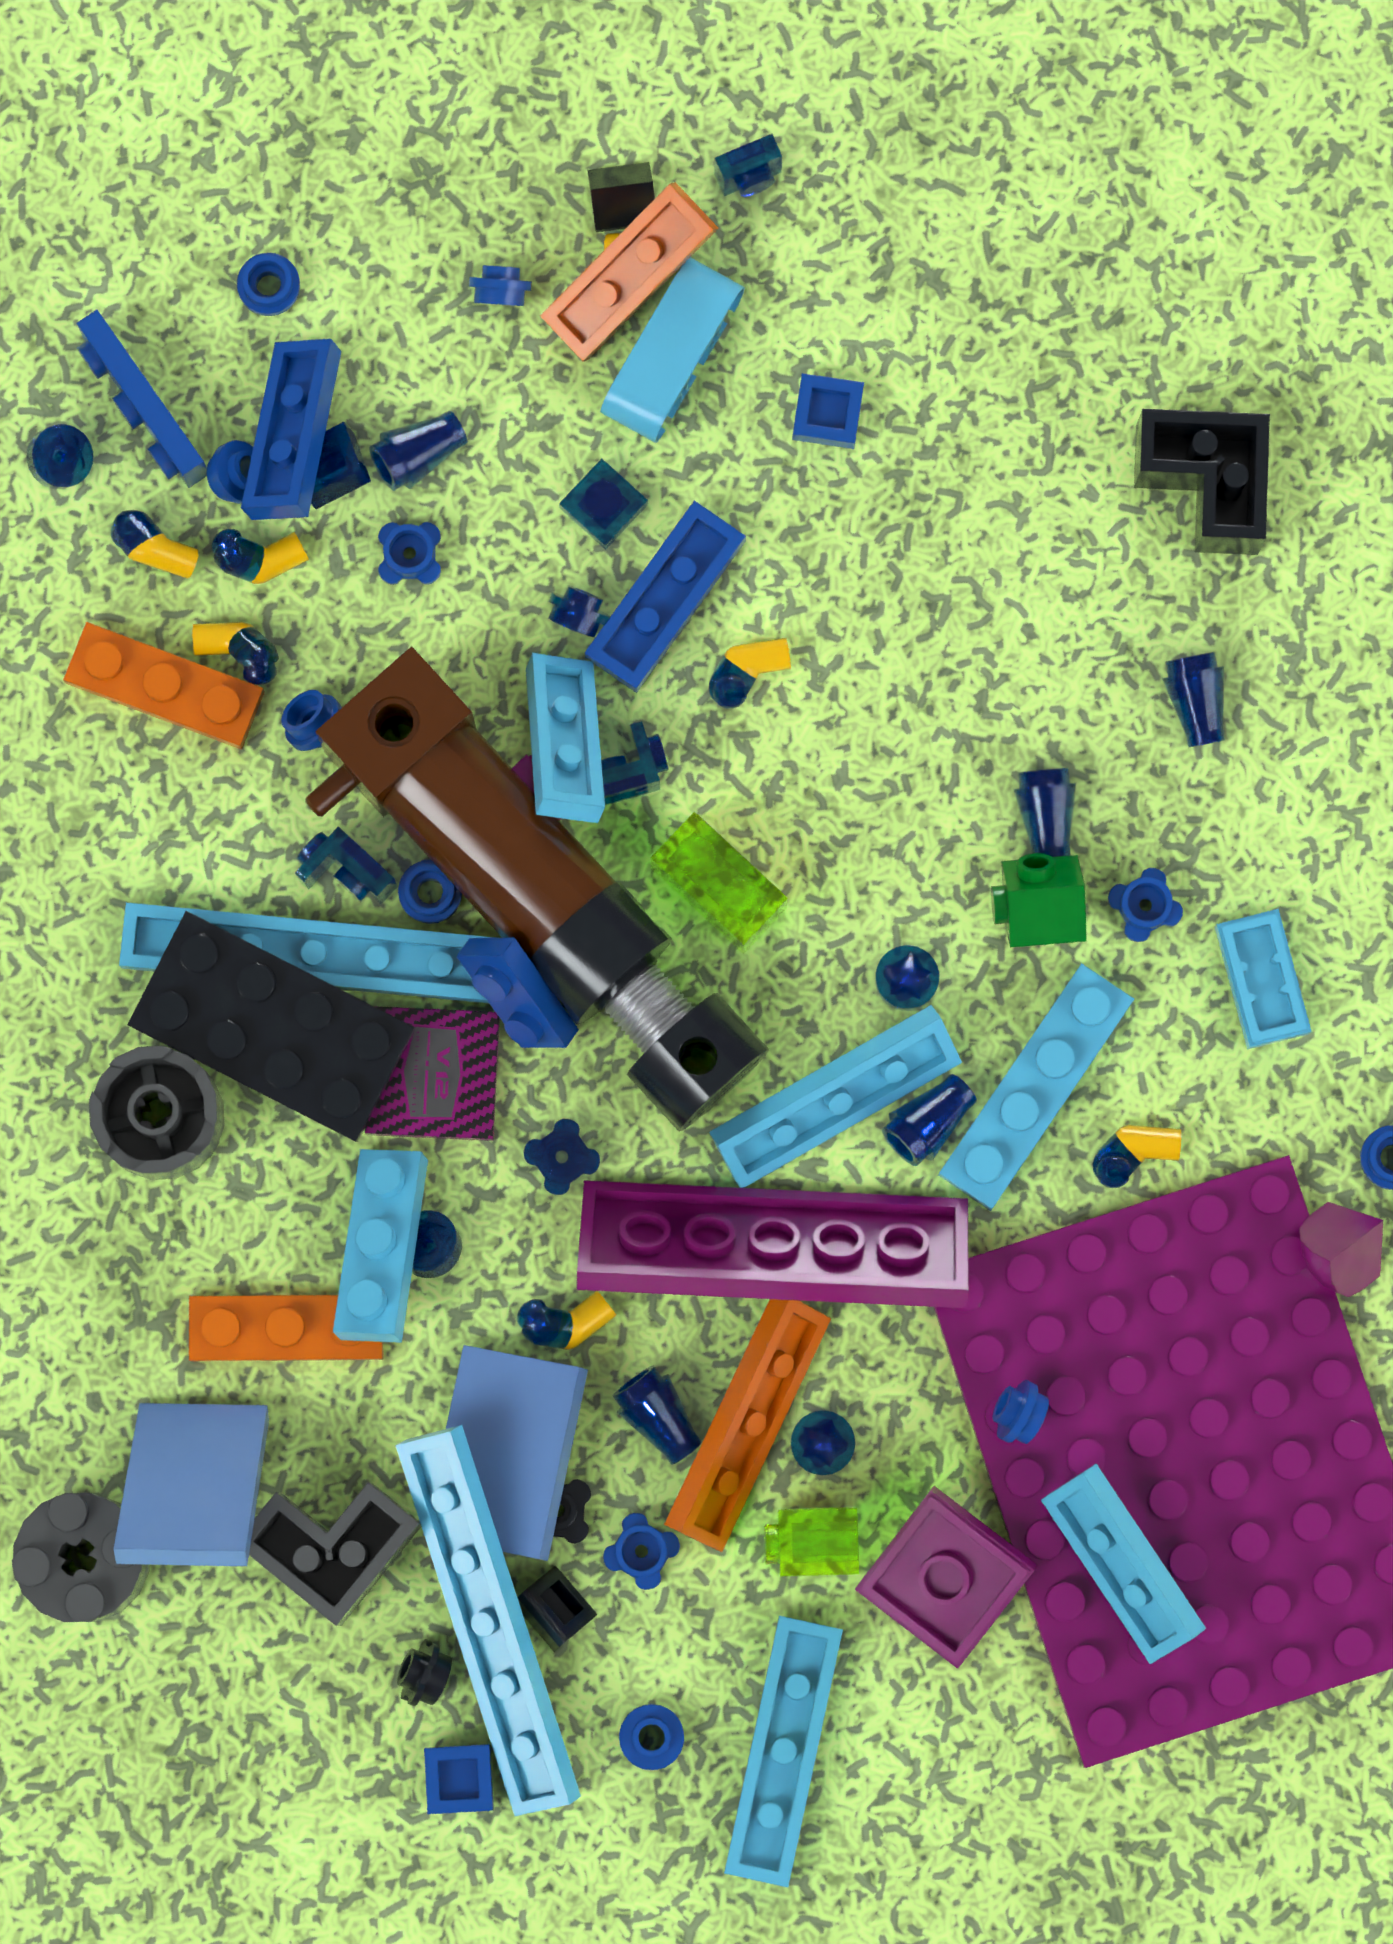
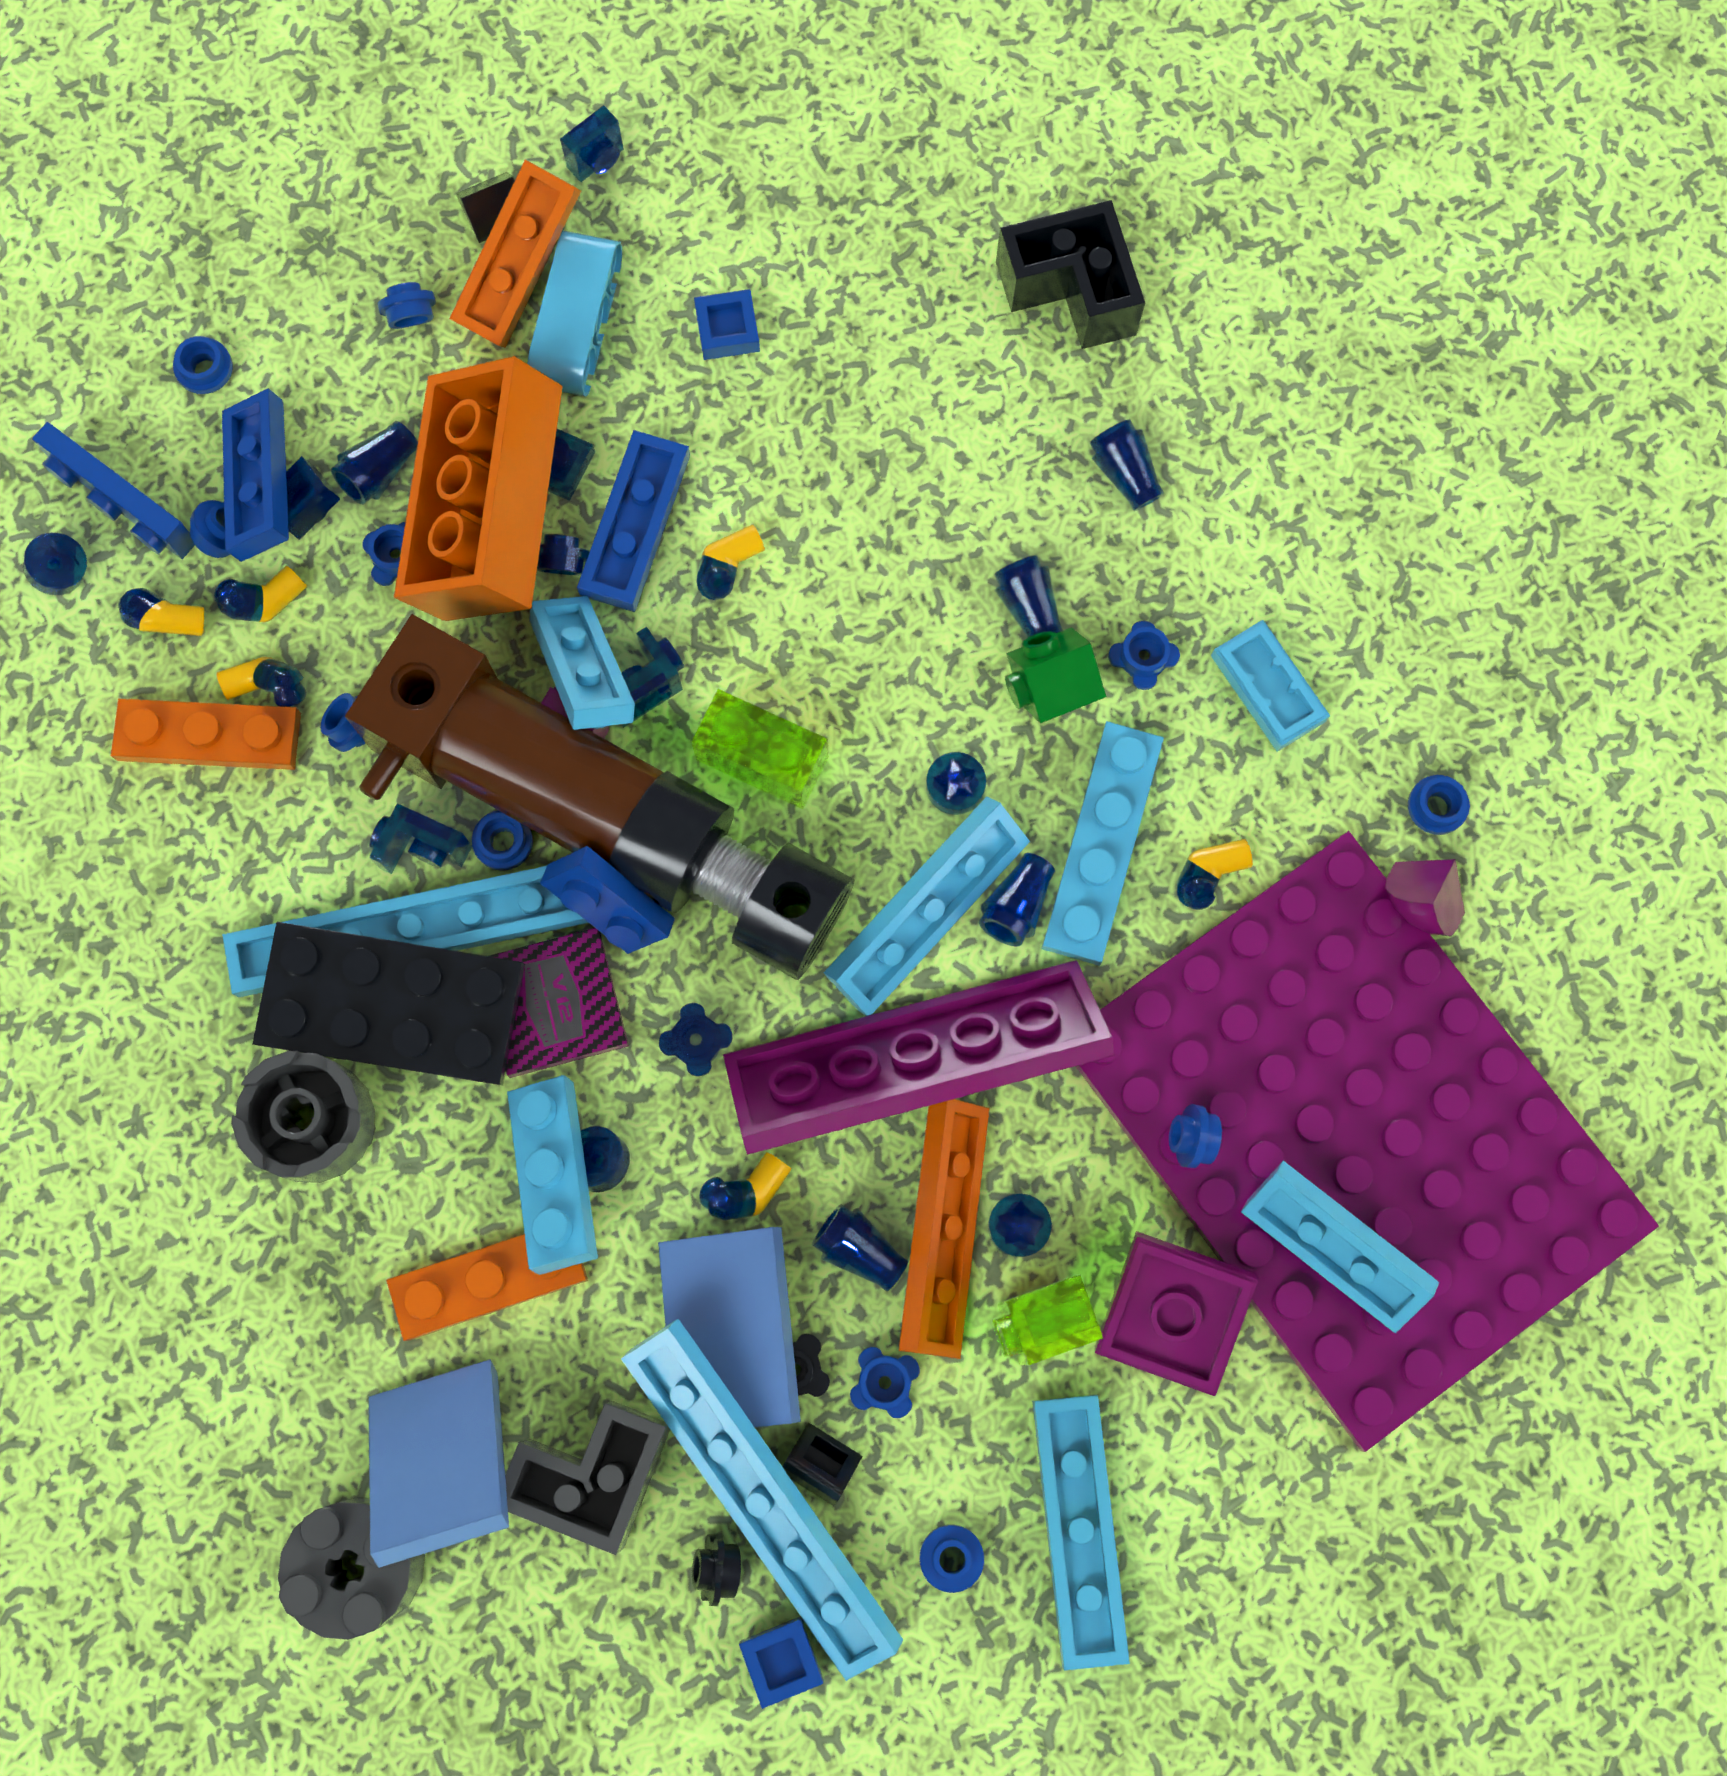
camera: 20 degrees left, 5 degrees down
(515, 524) = (479, 490): none -> orange brick

